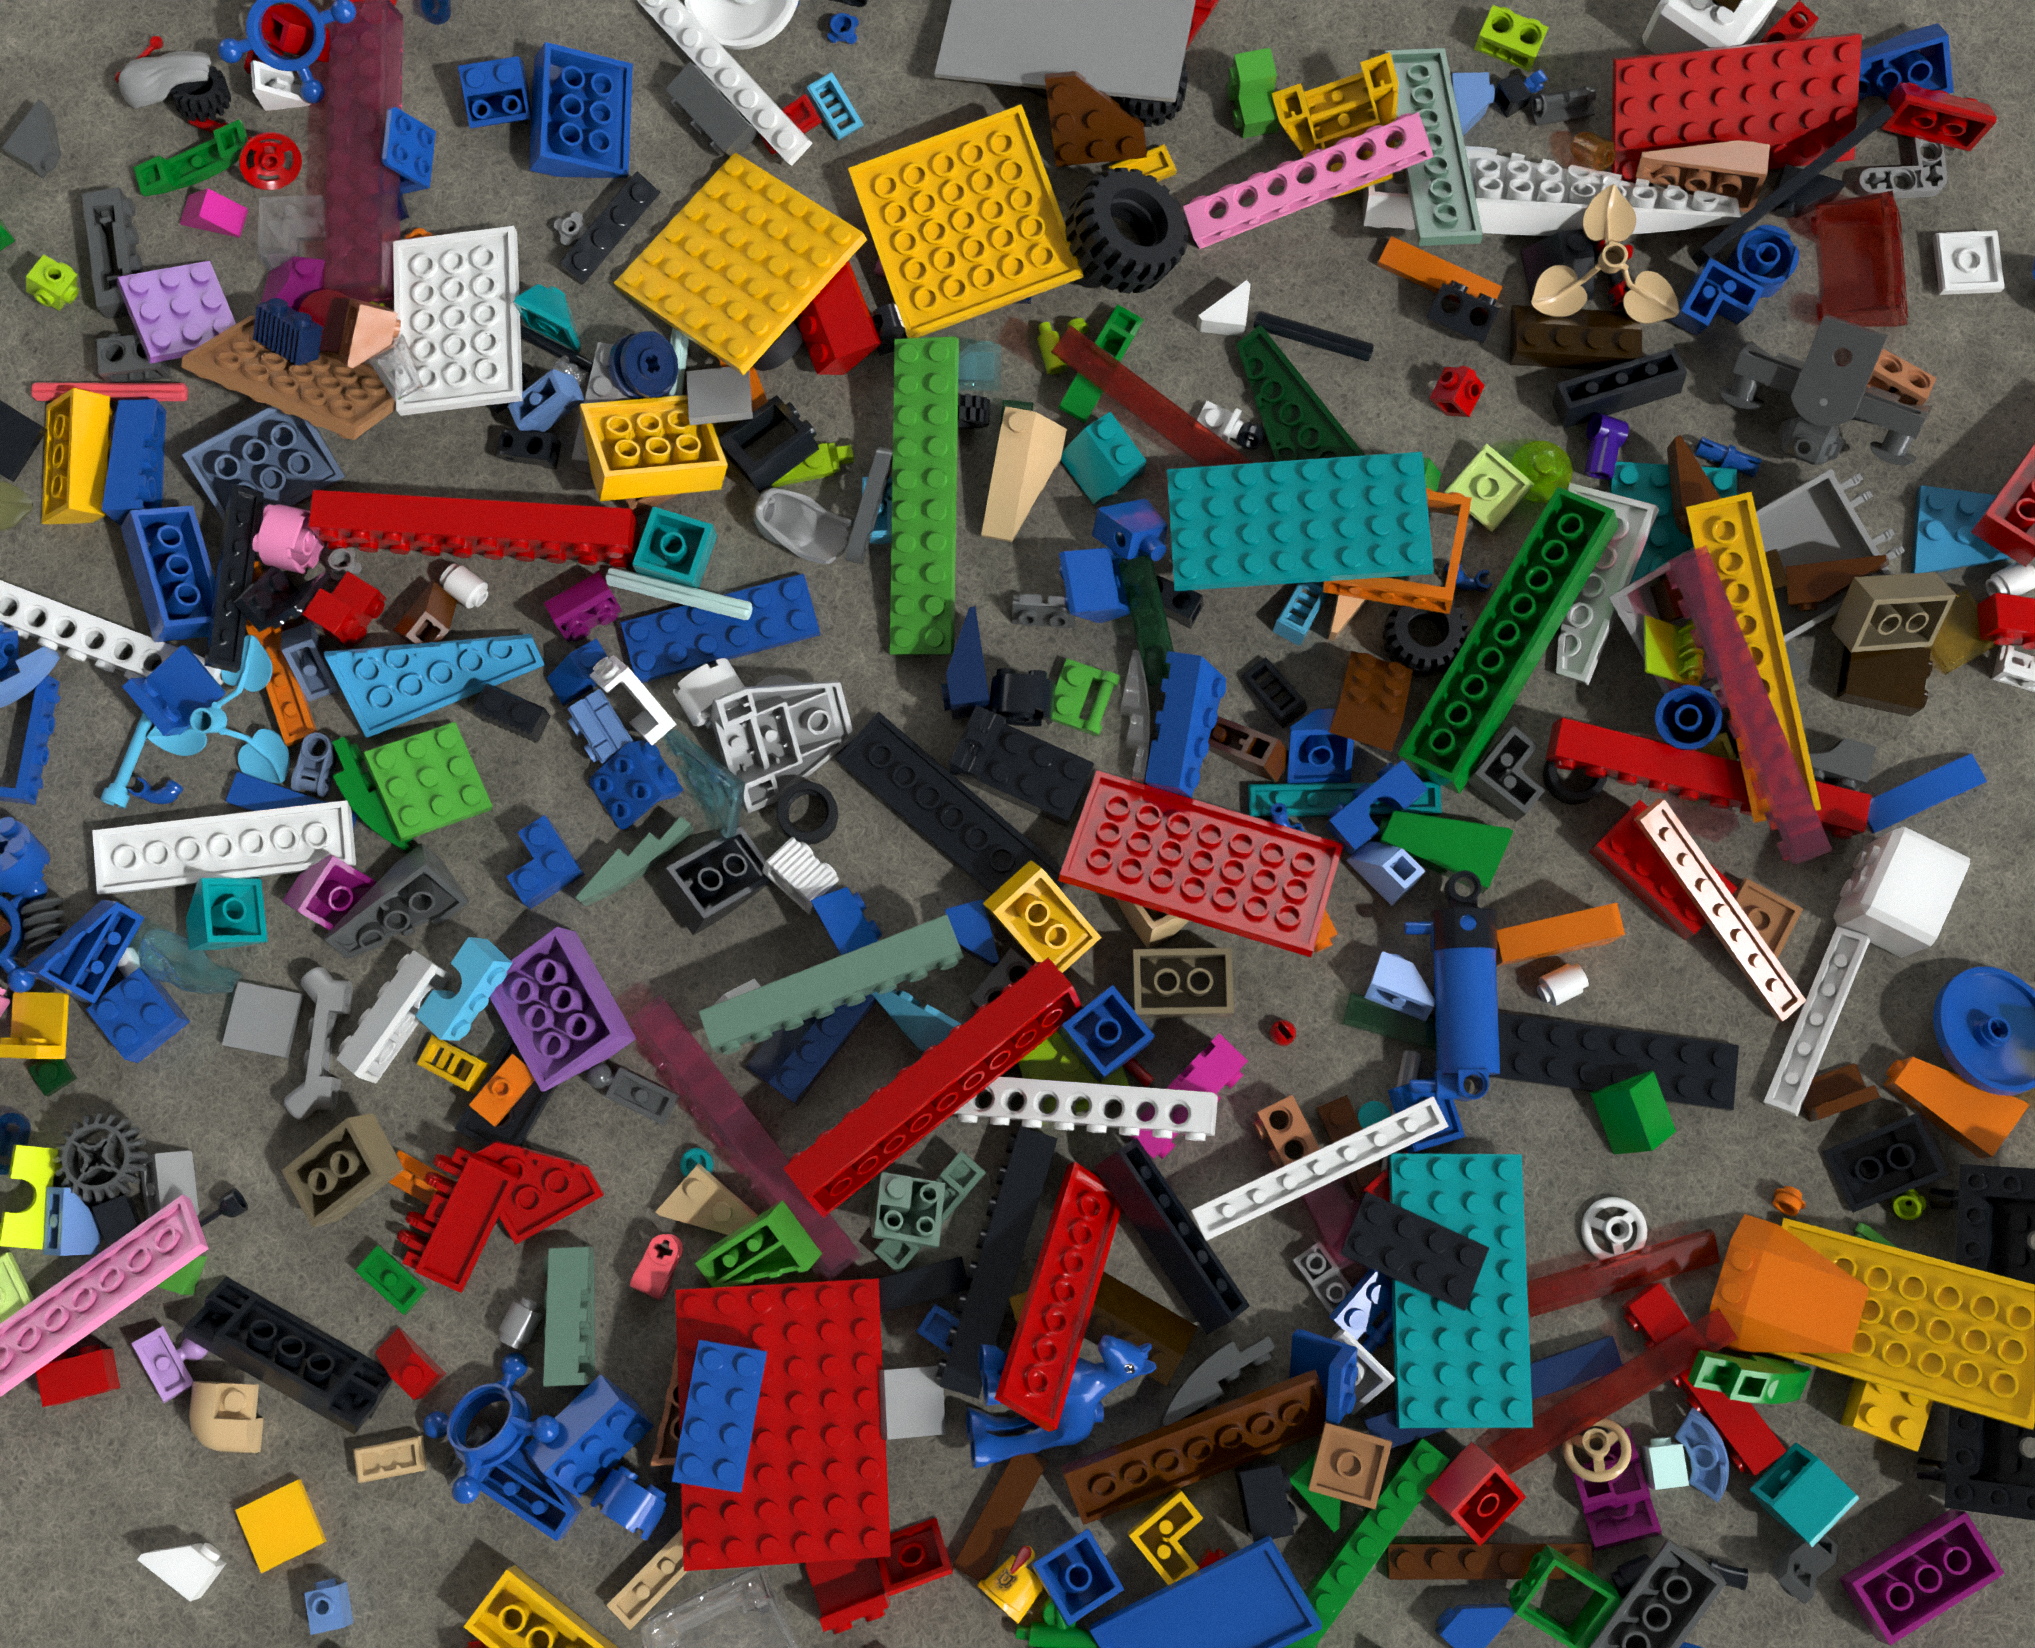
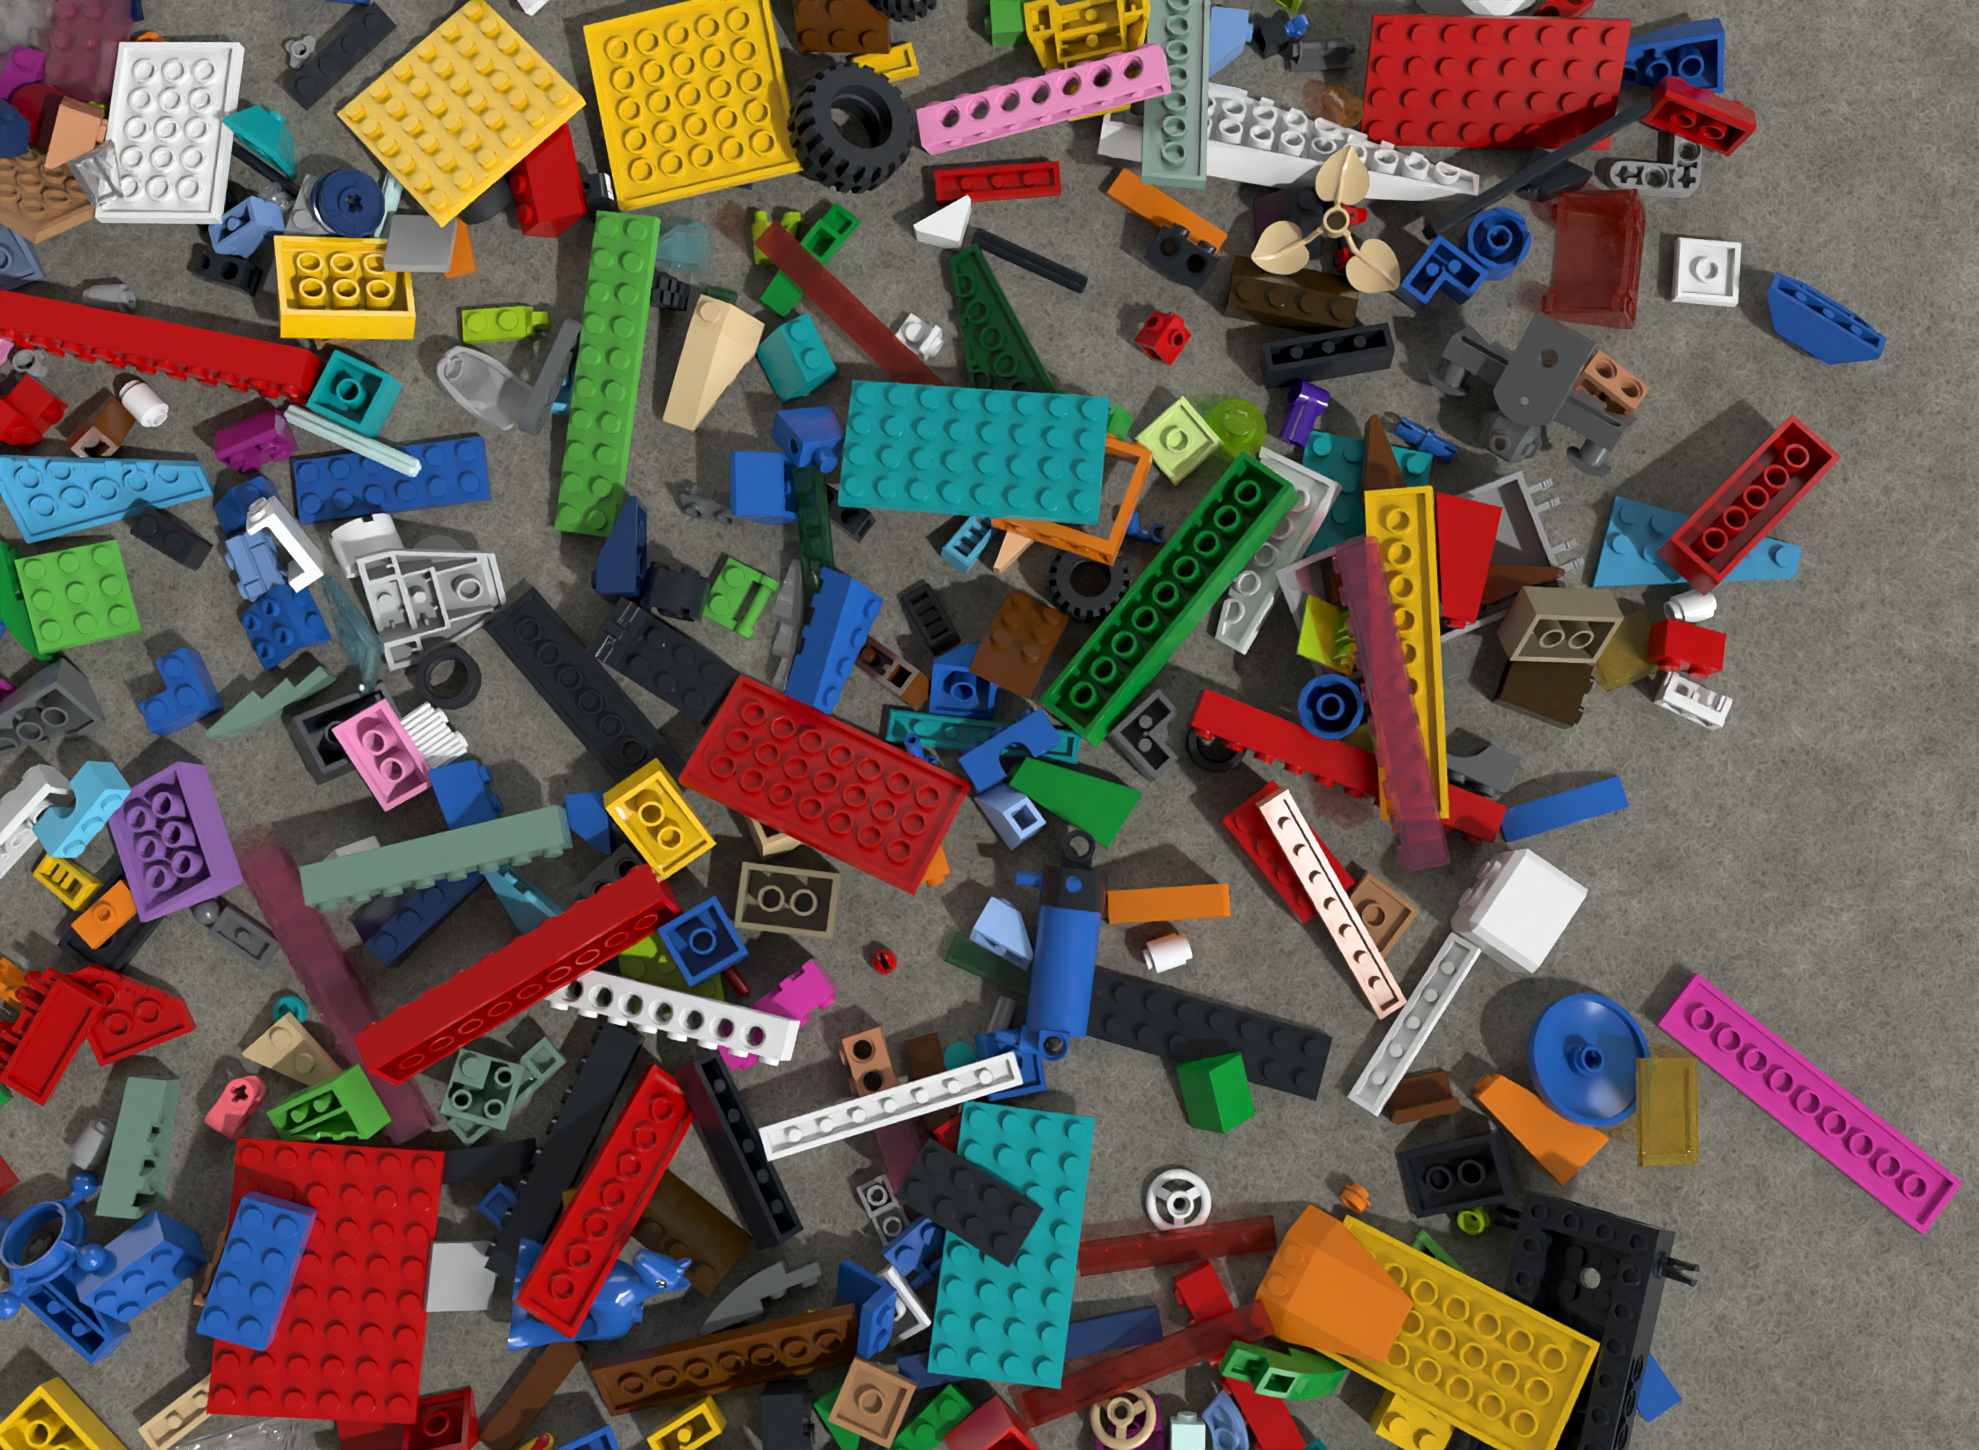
camera: 10 degrees right, 5 degrees up
(416, 485) = (110, 297): none -> light grey brick
(629, 1502) = (169, 1335): blue brick -> none
(761, 892) = (384, 754): none -> bright pink slope
(779, 460) = (473, 316): black window -> none
(1247, 441) = (948, 354): black hinge -> none
(1271, 265) = (998, 182): none -> red plate
(1721, 168) = (1464, 141): nougat wedge -> none
(1792, 553) = (1463, 554): none -> red slope

